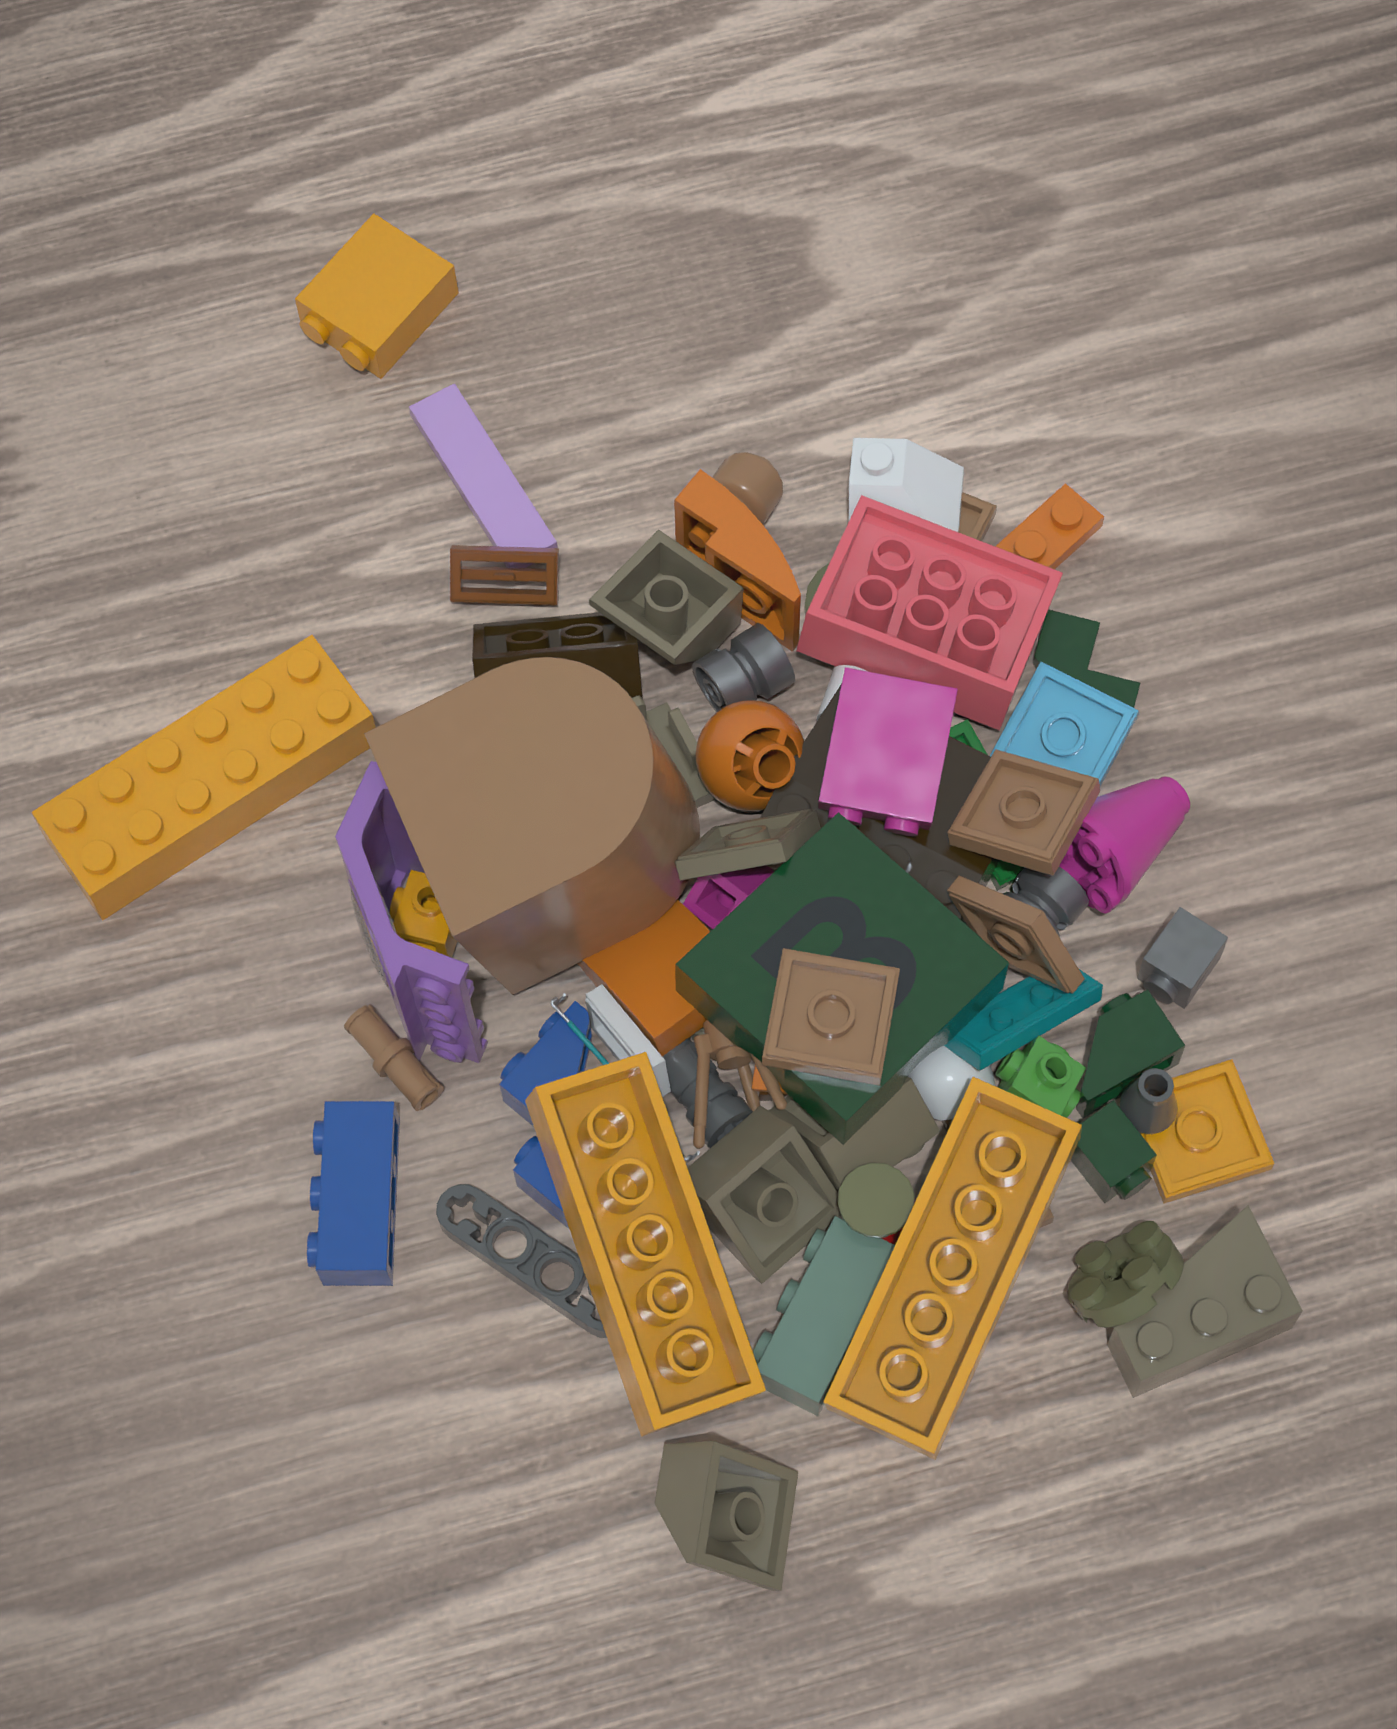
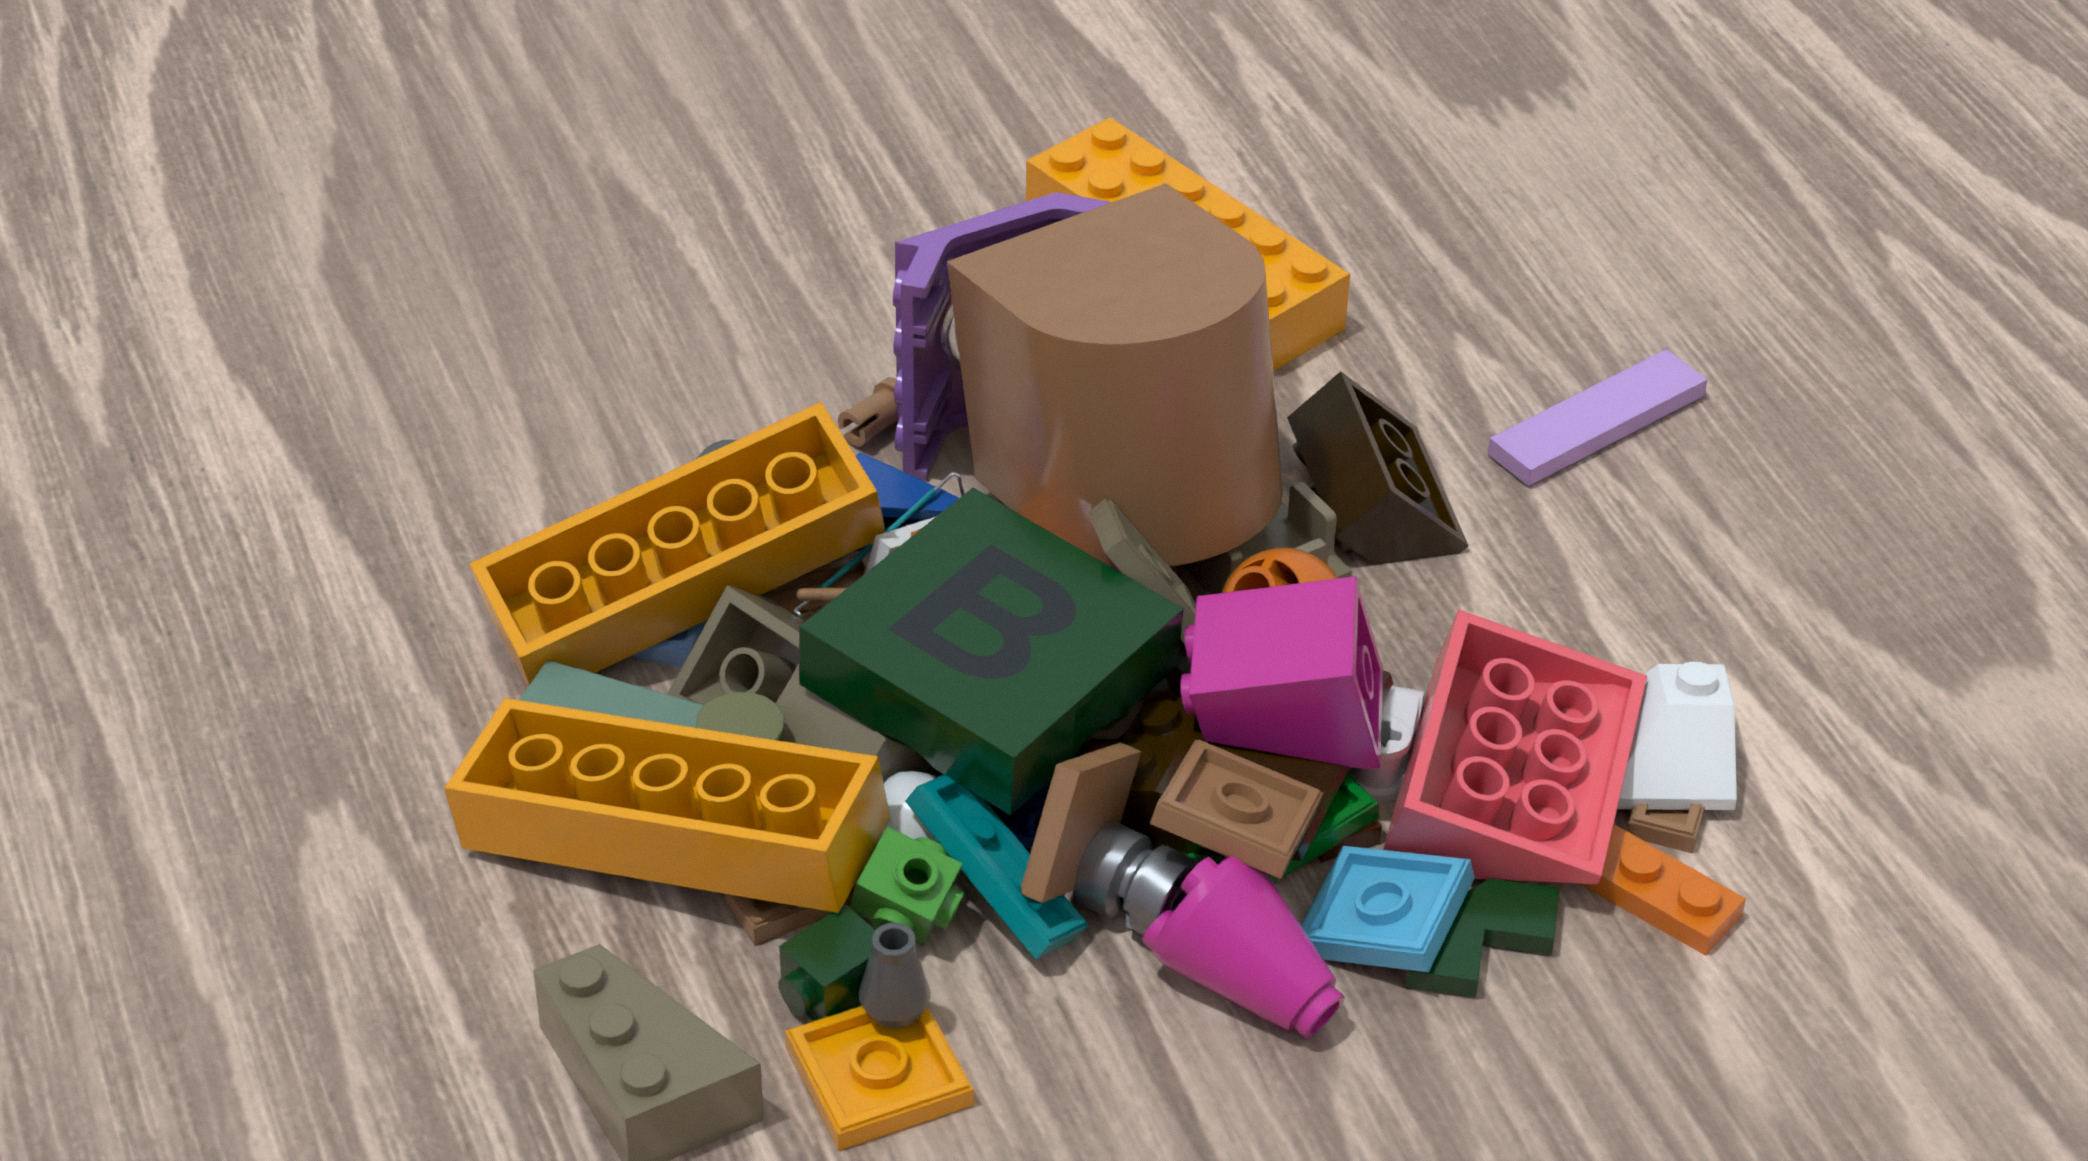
camera: 80 degrees right, 25 degrees down
(355, 1193) = (736, 383): blue brick -> none
(376, 296) = (1793, 311): light orange brick -> none
(504, 554) = (1486, 457): dark orange tile -> none
(671, 600) = (1458, 536): dark tan slope -> none
(727, 1510) = (393, 671): dark tan slope -> none
(737, 544) = (1547, 572): orange slope -> none
(750, 669) = (1404, 618): flat silver wheel -> none
(752, 482) = (1638, 607): medium nougat head -> none
(831, 1016) = (920, 602): medium nougat tile -> none
(1122, 1275) = (685, 975): olive plate -> none
(1126, 1043) = (976, 979): dark green slope -> none
(1181, 959) = (1098, 1027): flat silver brick -> none

